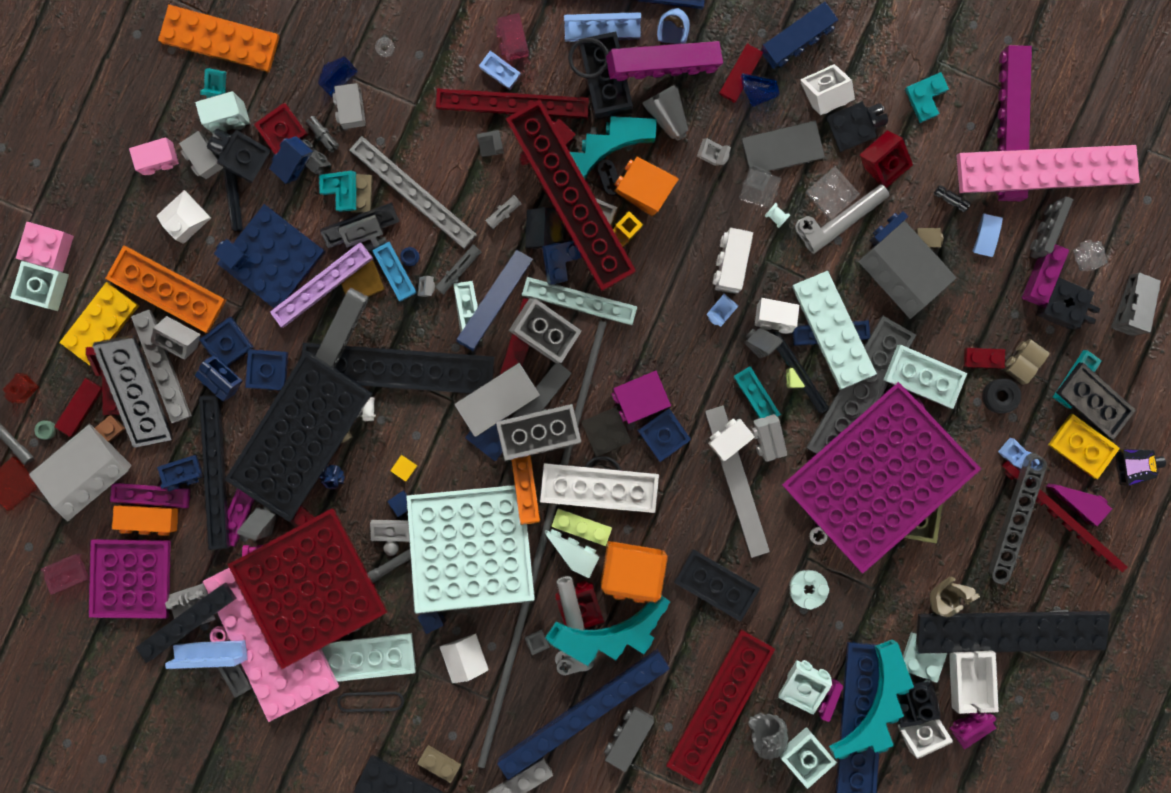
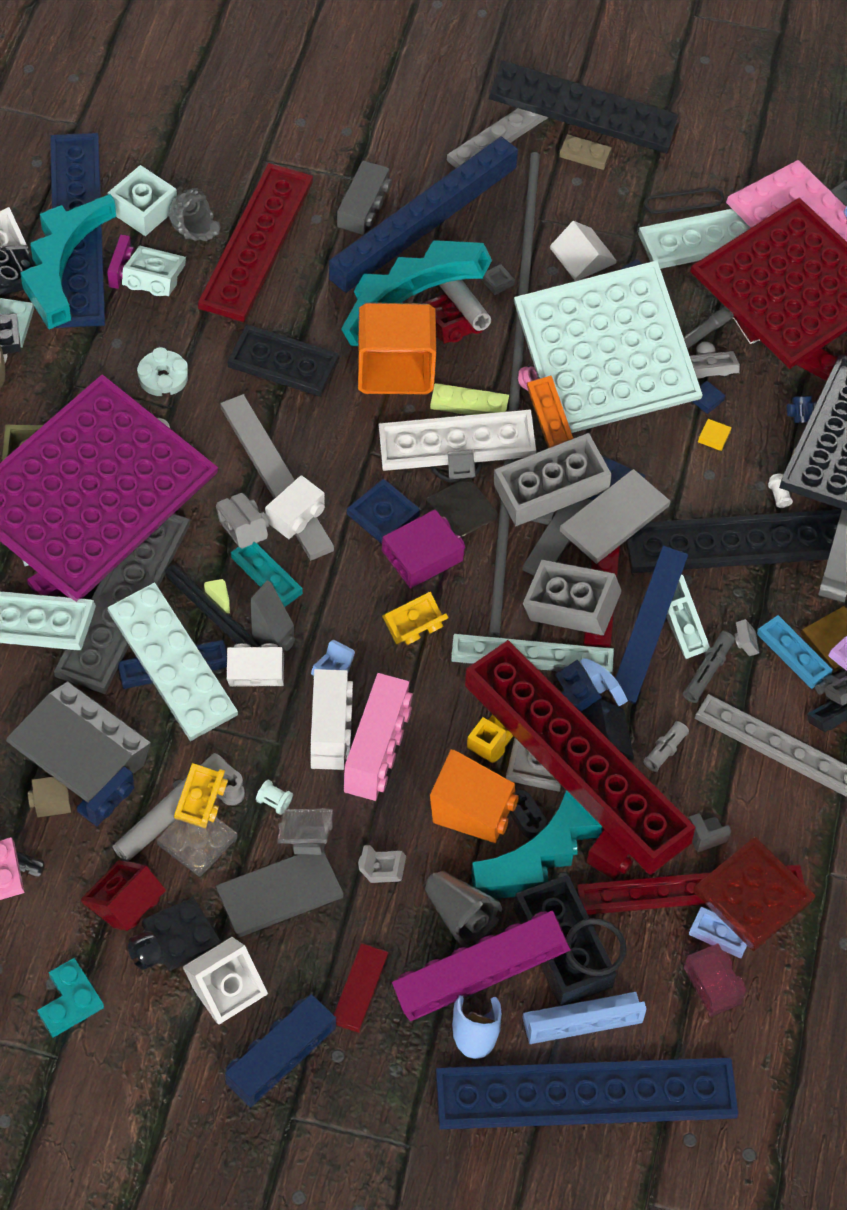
camera: 170 degrees right, 30 degrees down
(409, 256) = (779, 674): dark blue plate -> none
(473, 85) = (754, 893): none -> clear red plate
(534, 539) = (526, 375): none -> bright pink plate
(539, 267) = (604, 680): none -> light blue slope
(578, 558) = (472, 365): light aqua slope -> none
(601, 463) = (461, 464): none -> tile
(657, 338) = (413, 618): none -> yellow bracket
(704, 239) = (377, 737): none -> bright pink brick
(759, 89) = (329, 966): clear blue slope -> none
(830, 213) = (199, 795): none -> yellow bracket

